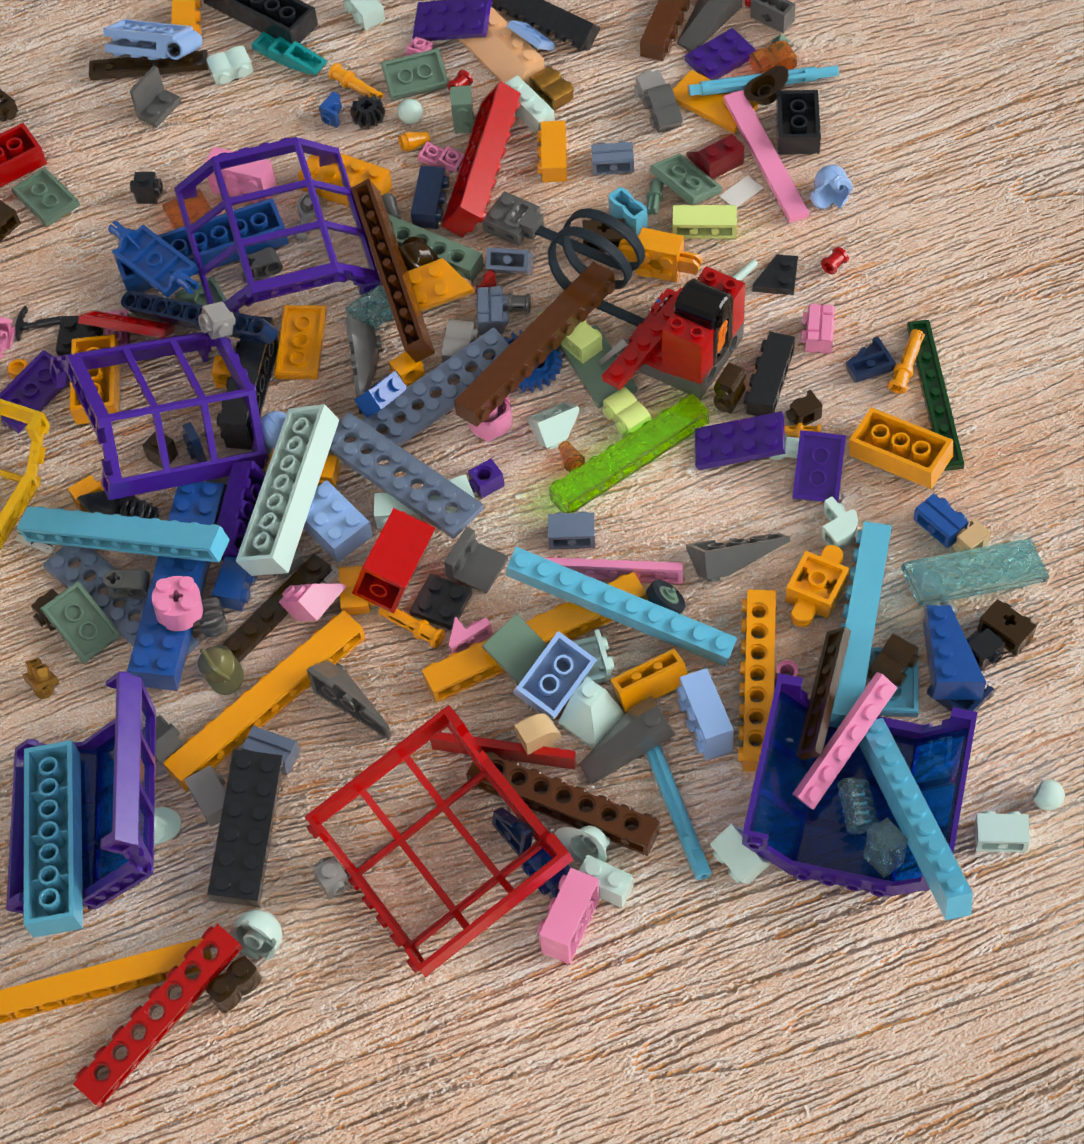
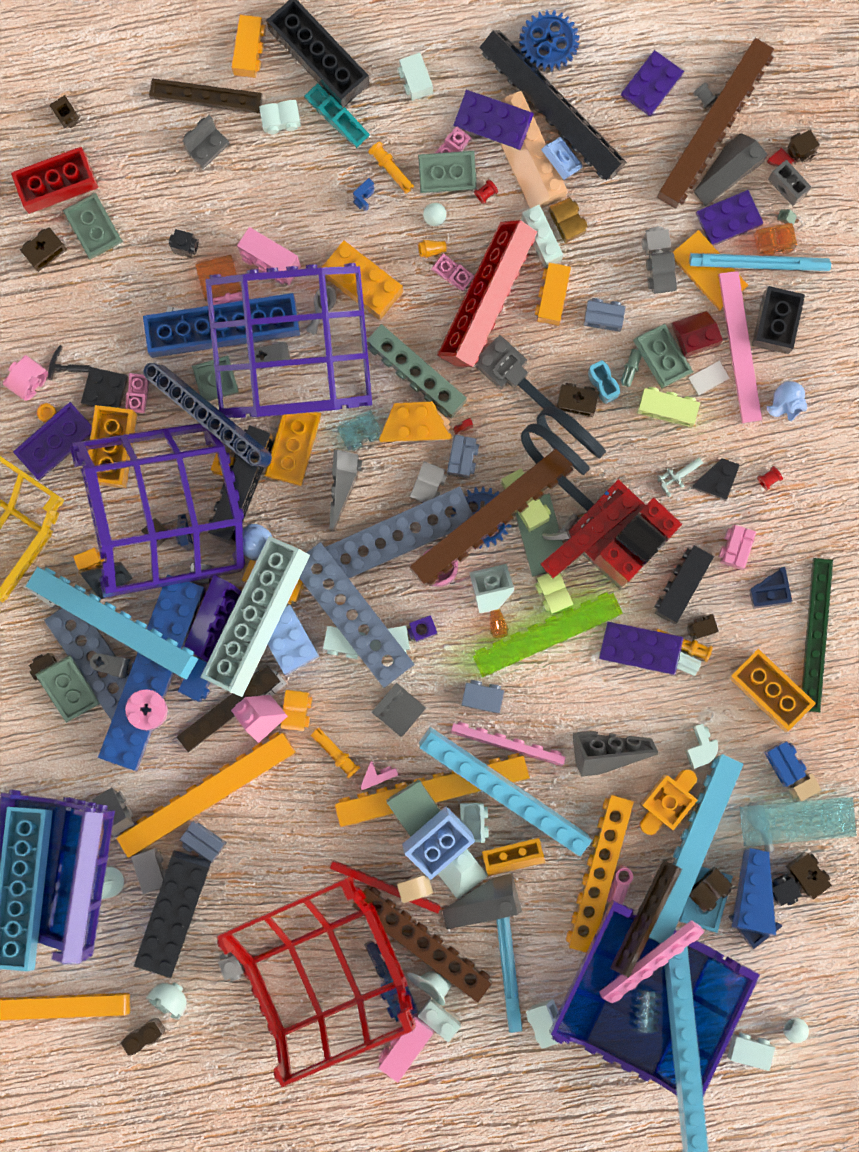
camera: 10 degrees right, 25 degrees up
(40, 678) = (28, 732): pearl gold hips -> none
(127, 324) = (143, 400): red tile -> none
(137, 1050) = (29, 1096): red brick -> none
(139, 508) = (132, 601): black gear -> none
(151, 39) = (211, 74): light blue hinge -> none
(154, 259) = (177, 344): blue plate -> none
(213, 618) = (176, 710): dark grey gear -> none
(216, 320) = (220, 443): light grey brick -> none
(221, 669) = (175, 756): olive piece -> none
(339, 689) = (266, 800): dark grey wedge -> none
(367, 111) = (401, 209): black gear -> none
(380, 394) = (350, 527): brick -> none
(391, 205) = (395, 321): dark grey cone -> none
(392, 271) = (383, 405): reddish brown brick -> none
(393, 560) = (331, 701): red brick -> none
(407, 368) = (377, 500): light orange brick -> none
(416, 253) = (408, 387): dark brown piece -> none
(429, 197) = (433, 318): dark blue brick -> none
(441, 601) = (363, 735): black plate -> none
(462, 109) = (481, 230): sand green brick -> none
(509, 261) = (488, 411): sand blue brick -> none
(519, 302) = (488, 454): dark grey bush -> none
(663, 255) = (620, 440): light orange brick -> none
(666, 596) = (544, 784): black wheel -> none
(705, 714) = (549, 900): light blue brick -> none
(729, 388) = (645, 595): dark brown brick -> none
(765, 87) = (761, 275): dark brown piece -> none
(818, 466) = (699, 691): dark purple plate -> none
(885, 847) = (657, 1059): clear light blue brick -> none
(904, 369) = (797, 608): light orange pin -> none

